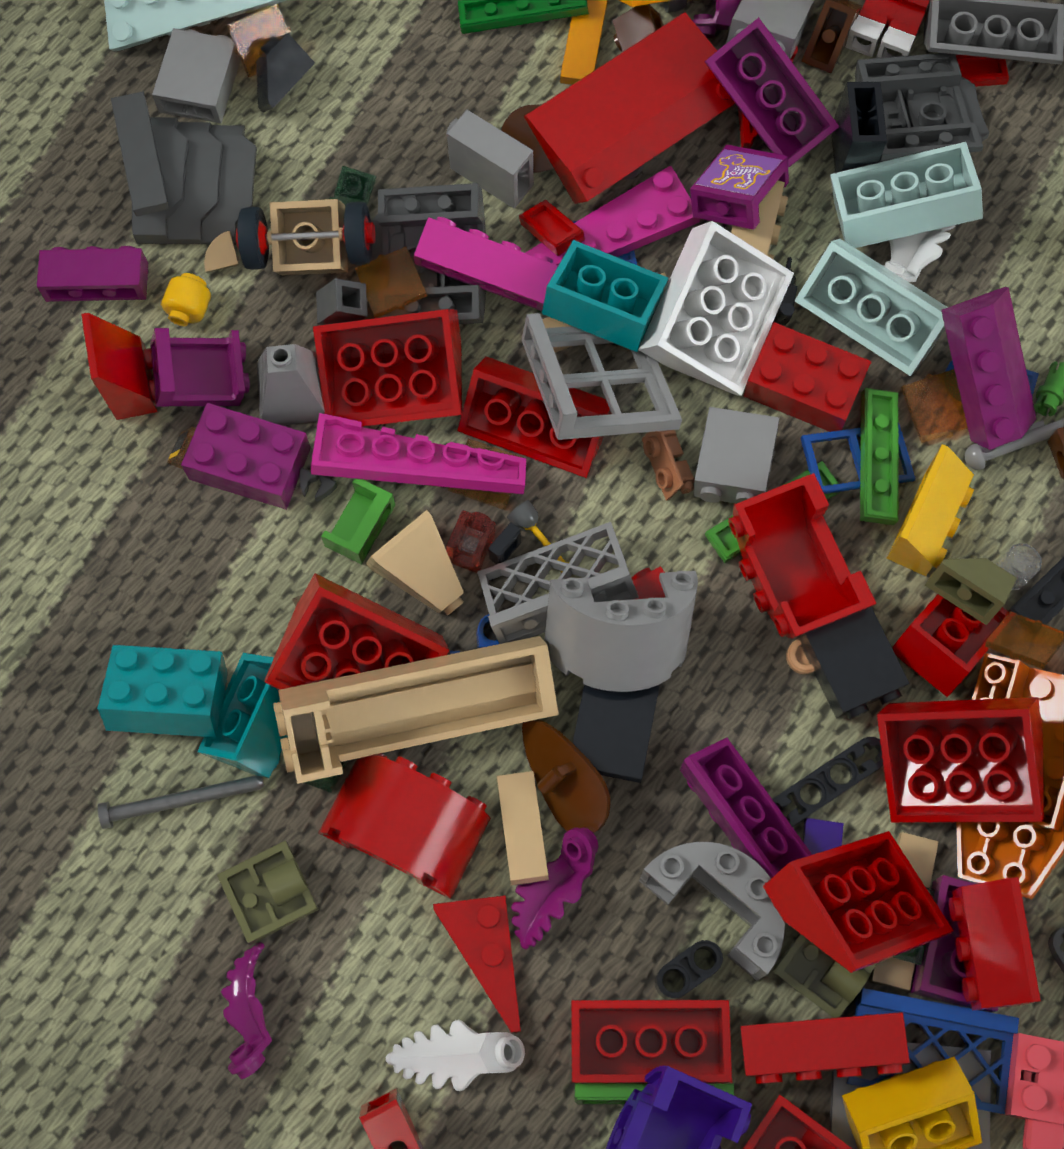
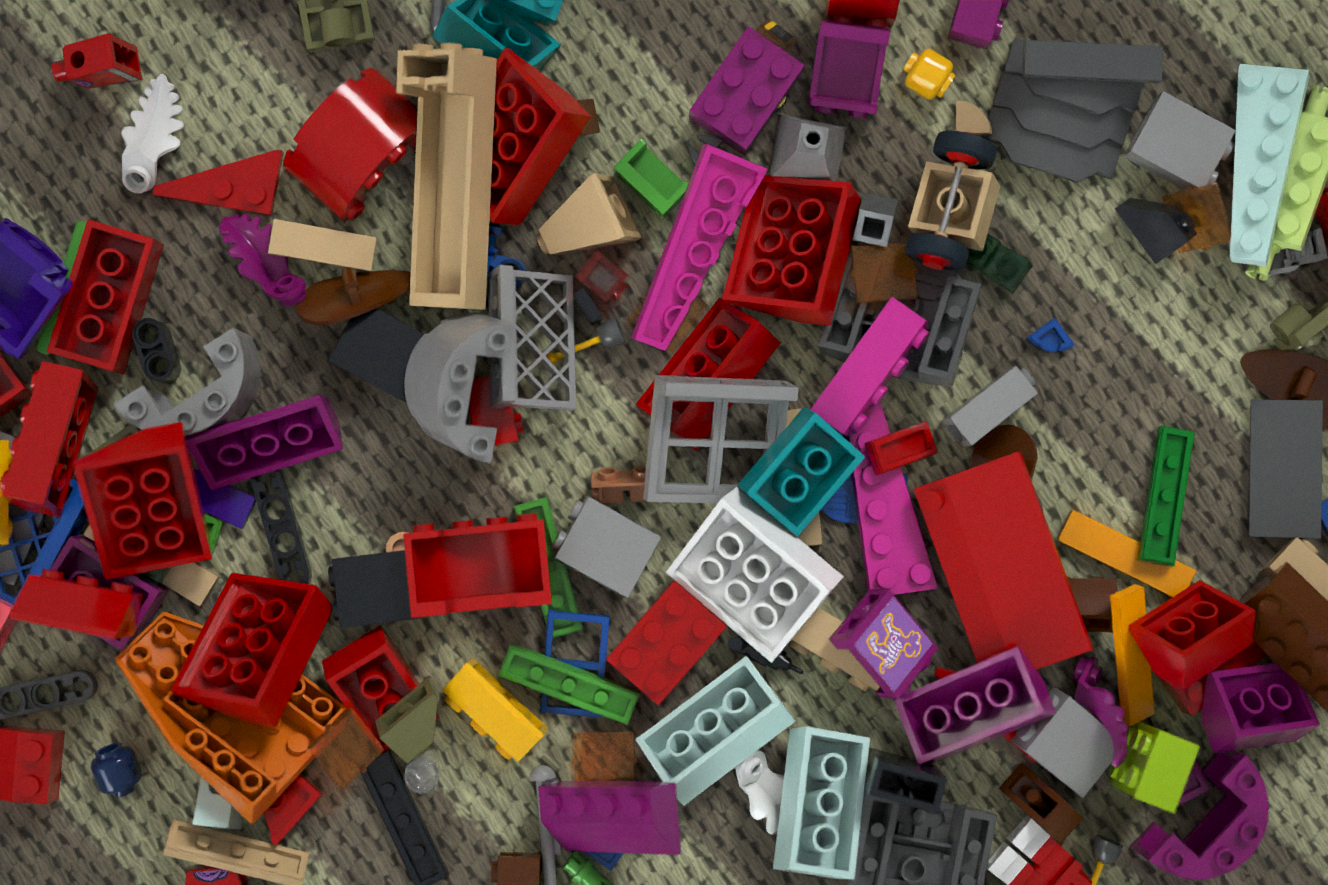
camera: 105 degrees right, 15 degrees up
(407, 137) = (1051, 337): none -> blue tile

